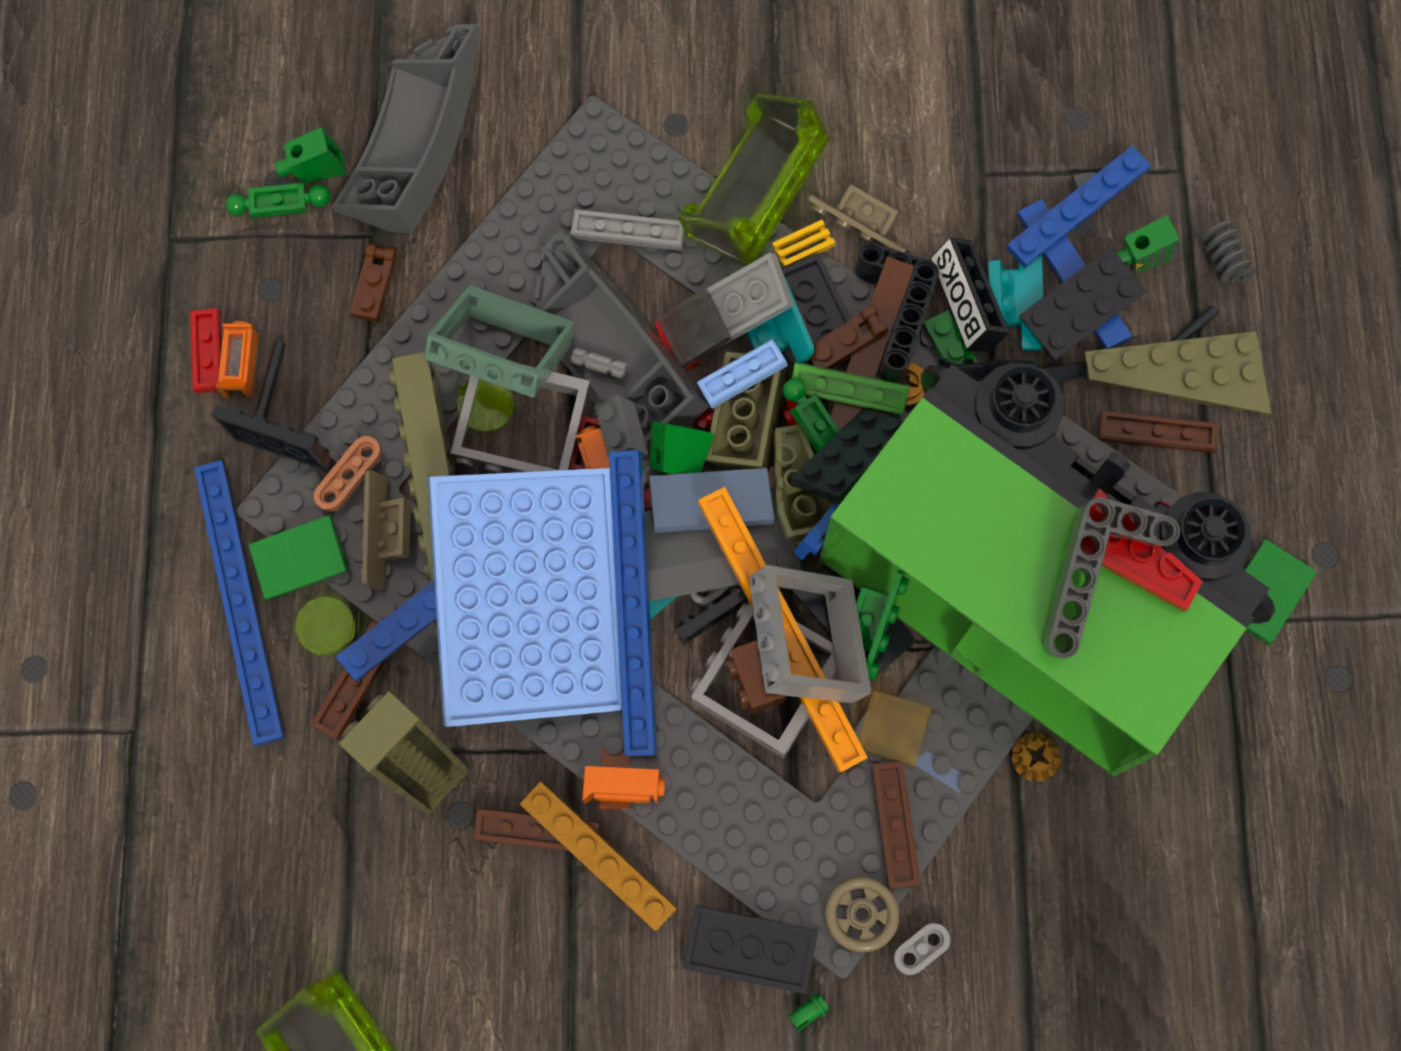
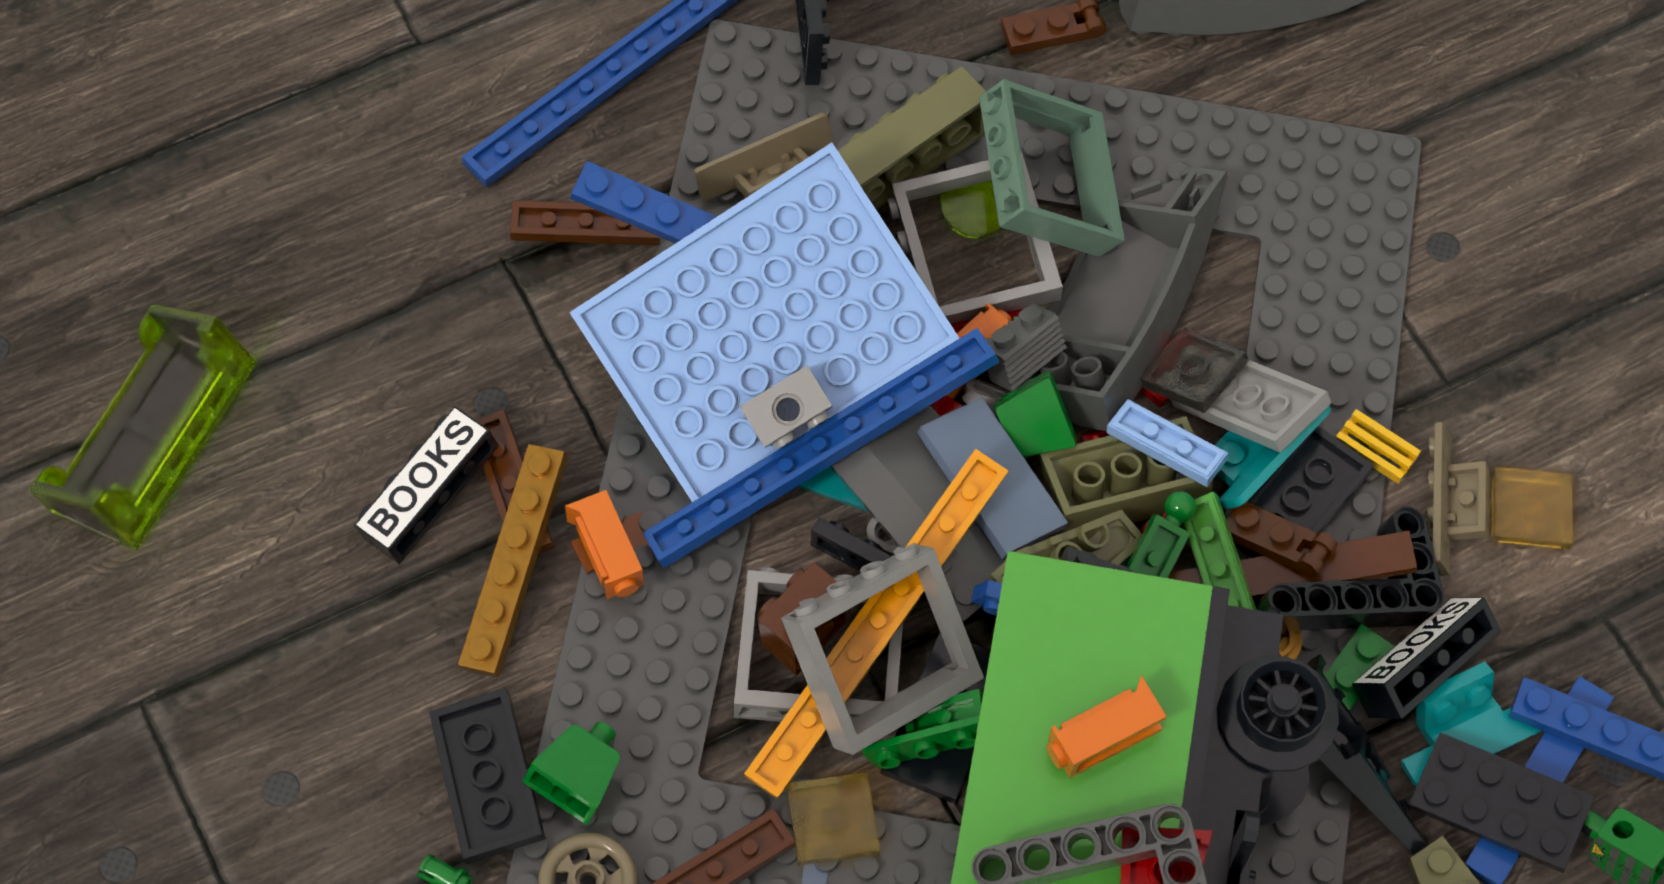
camera: 55 degrees right, 10 degrees down
(298, 557) = (692, 101): green tile -> none
(325, 626) = (636, 158): clear neon green tile -> none
(351, 461) = (798, 93): nougat plate -> none
(403, 753) = (502, 258): olive brick -> none
(509, 892) = (426, 484): none -> brick
(589, 628) = (763, 415): none -> light grey brick
(598, 363) = (1094, 294): light grey axle -> none
(627, 229) = (1276, 250): light grey tile -> none
(758, 178) = (1427, 359): windscreen -> none
(783, 884) = (576, 769): none -> green torso
(890, 174) = (1532, 507): none -> clear yellow tile
(996, 519) = (1105, 730): none -> orange window

